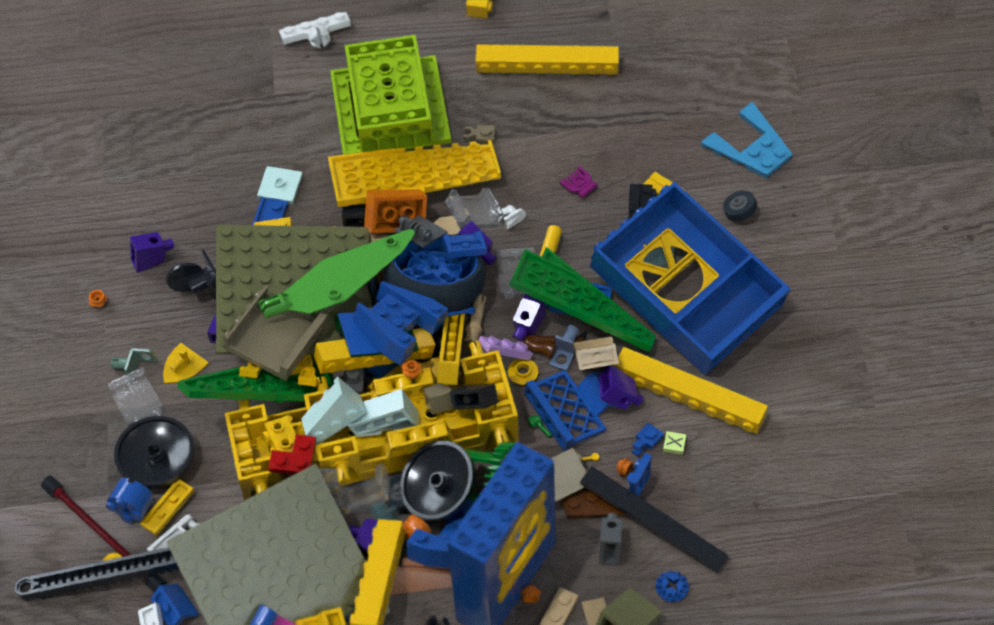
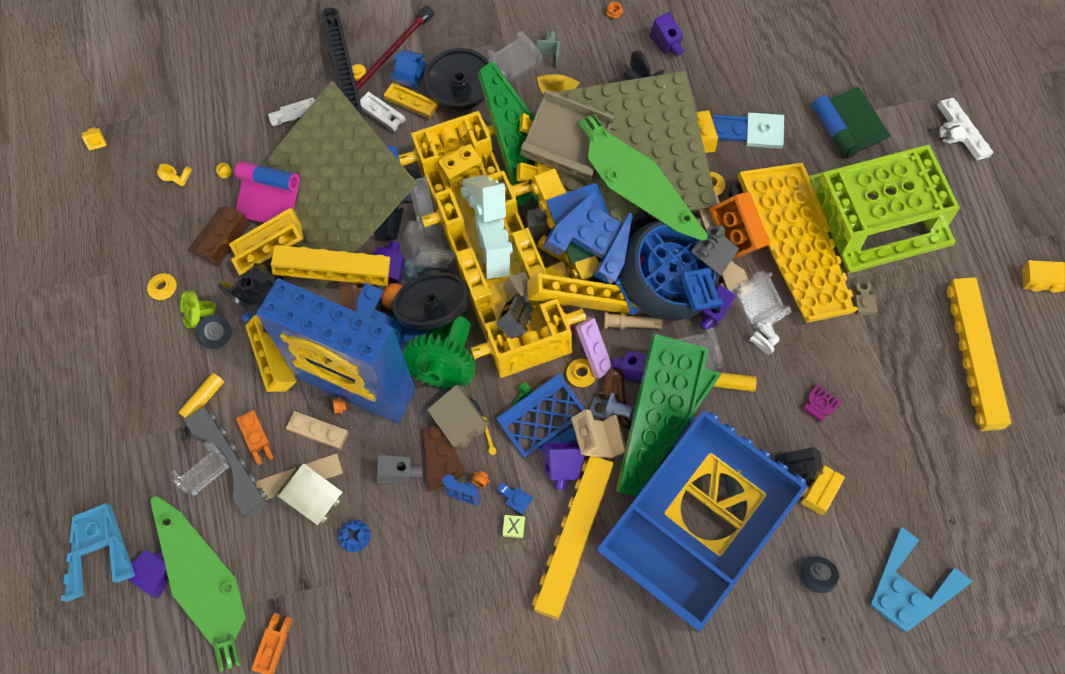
camera: 85 degrees right, 10 degrees up
(286, 113) = (850, 121): none -> dark green door
(293, 461) = (432, 176): red plate -> none
(411, 373) = (539, 260): orange plate -> none
(654, 519) = (418, 511): black tile -> none

